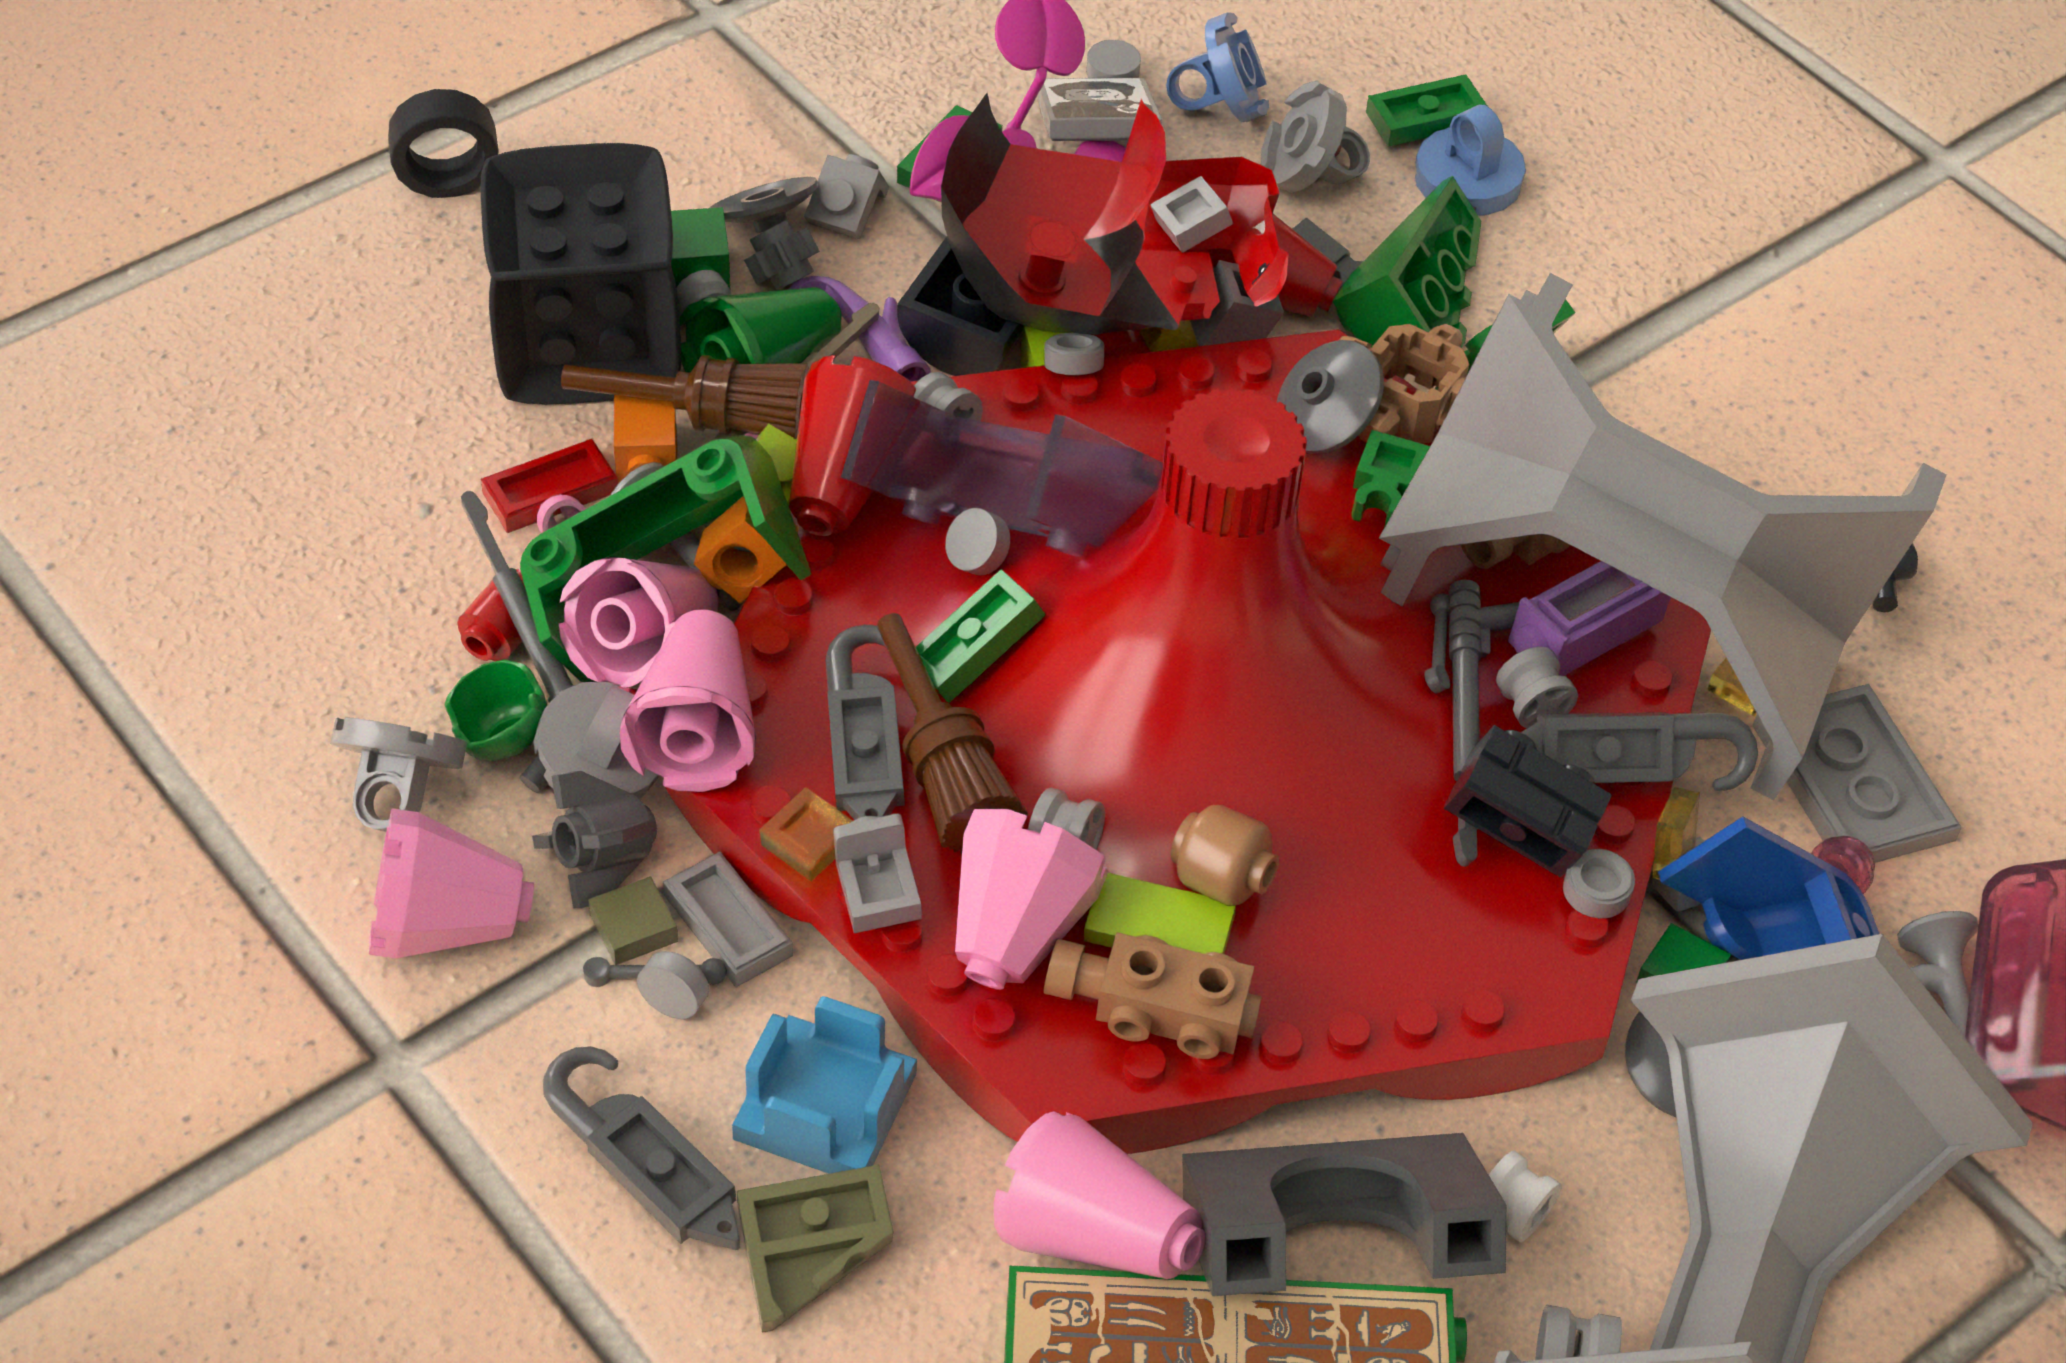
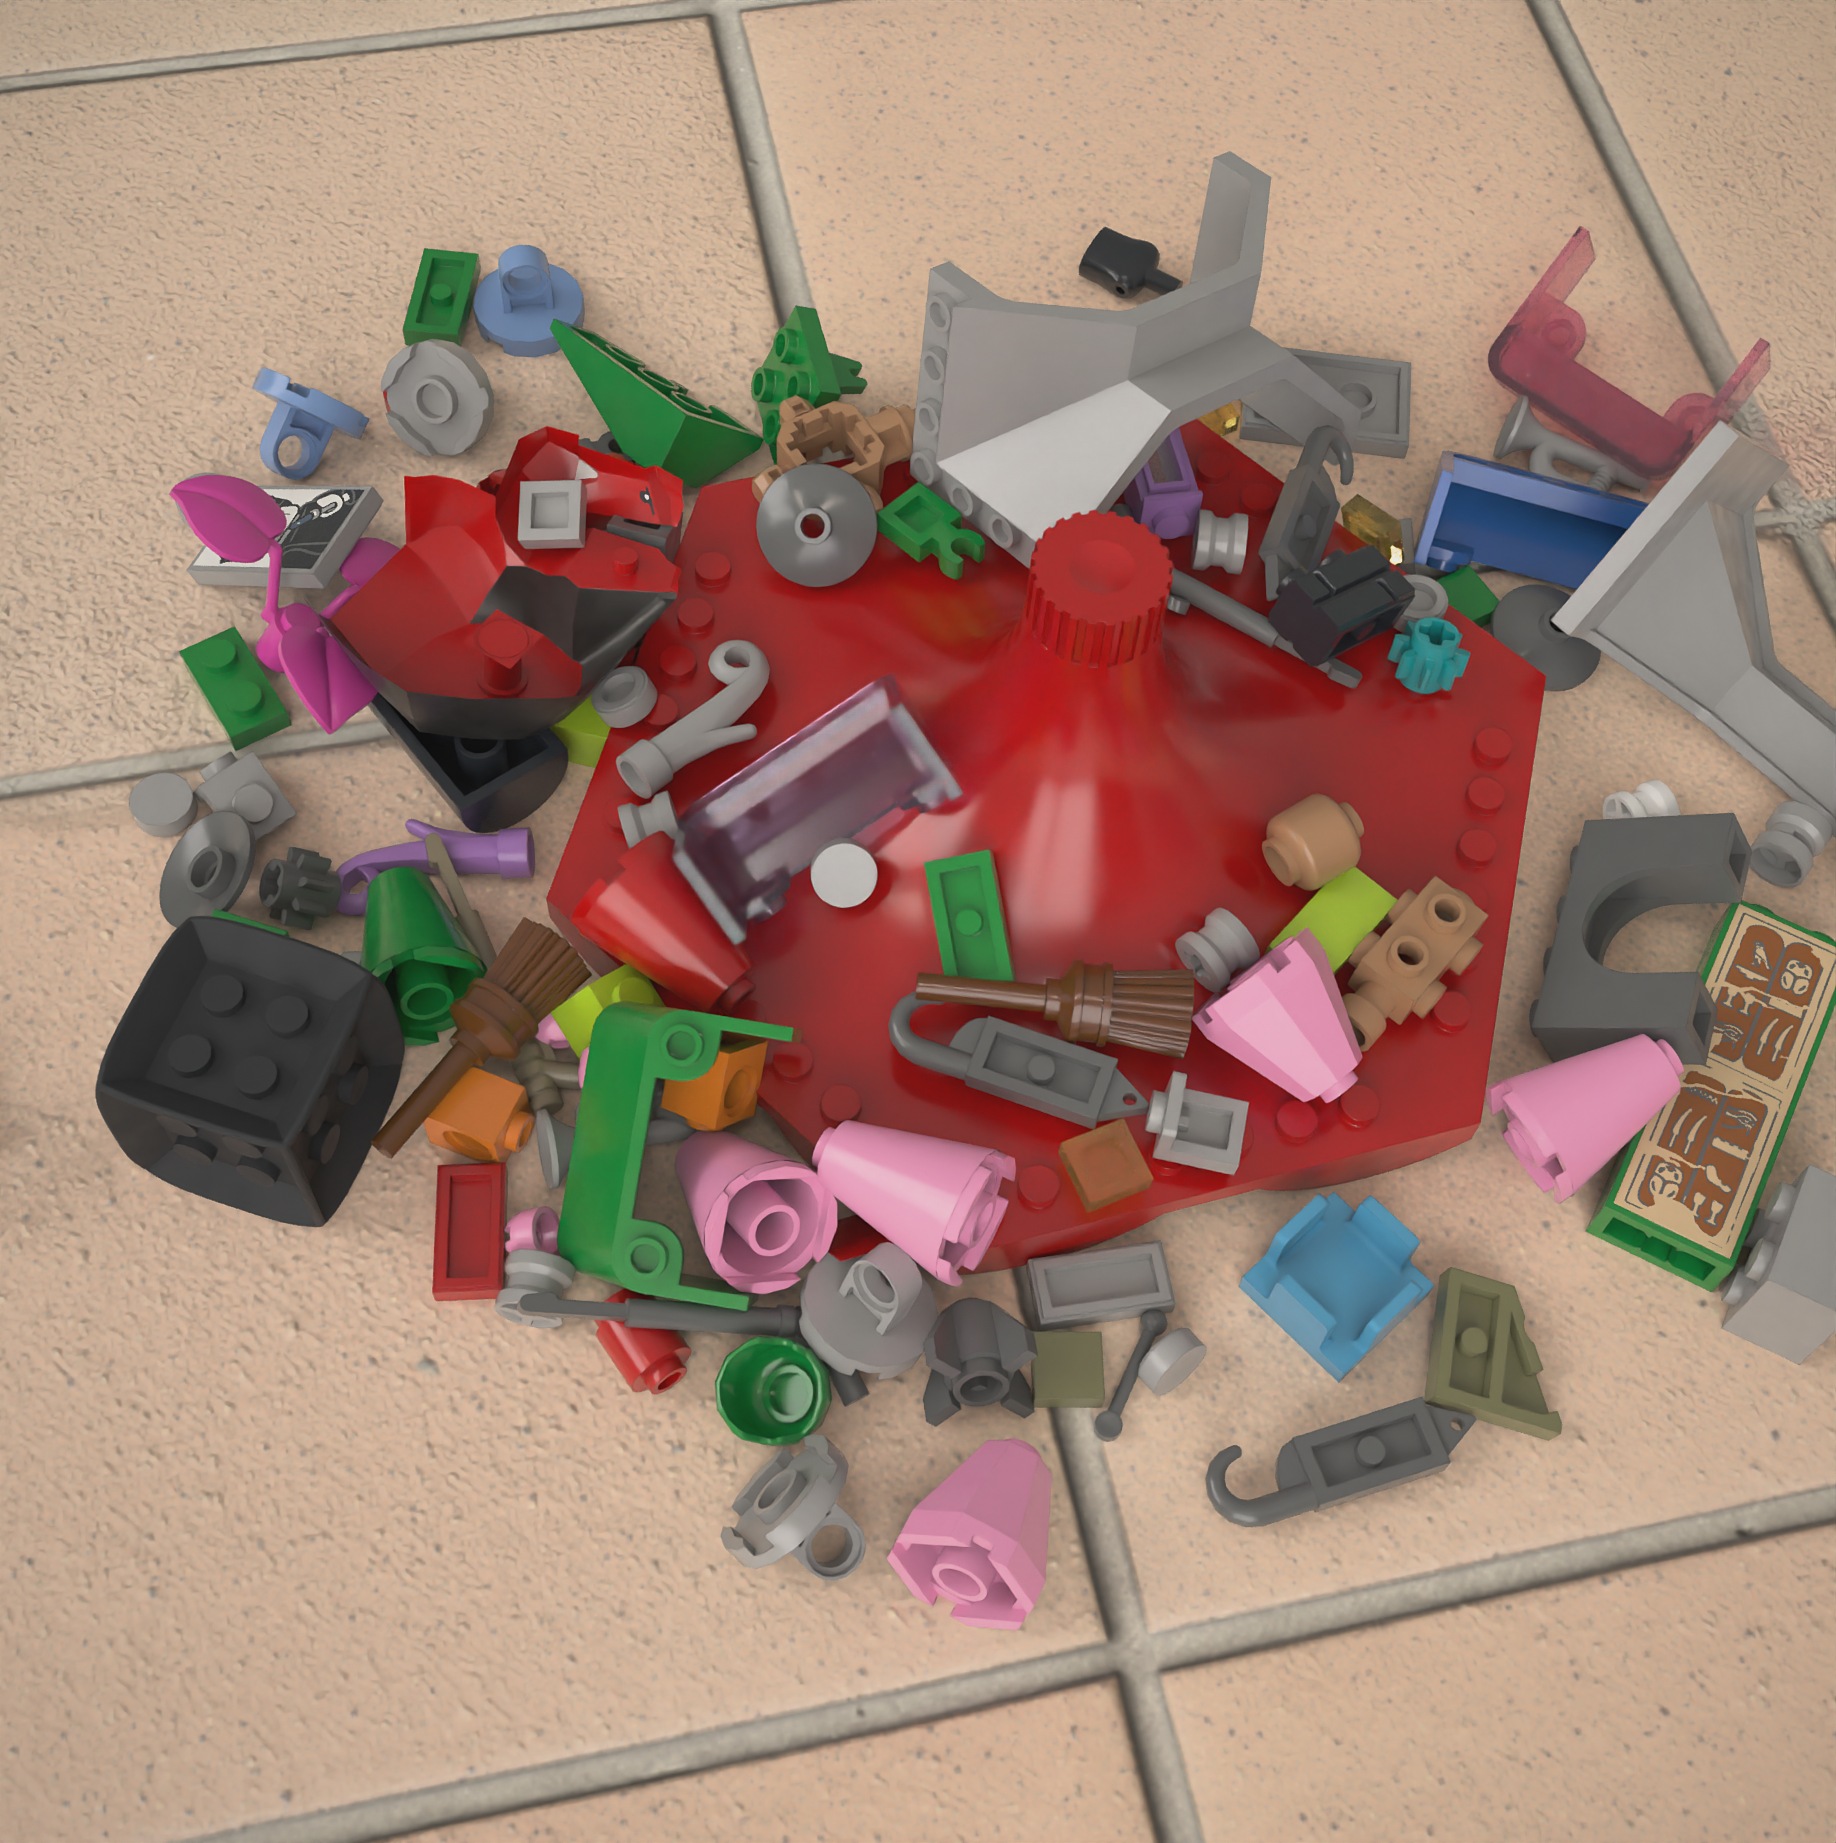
camera: 65 degrees left, 10 degrees up
(514, 528) = (531, 1273): none -> light grey wheel
(809, 154) = (163, 804): none -> light grey tile
(1010, 387) = (651, 763): none -> light grey plant
(1535, 905) = (1428, 655): none -> teal gear
(1850, 857) = (1419, 451): clear pink plate -> none

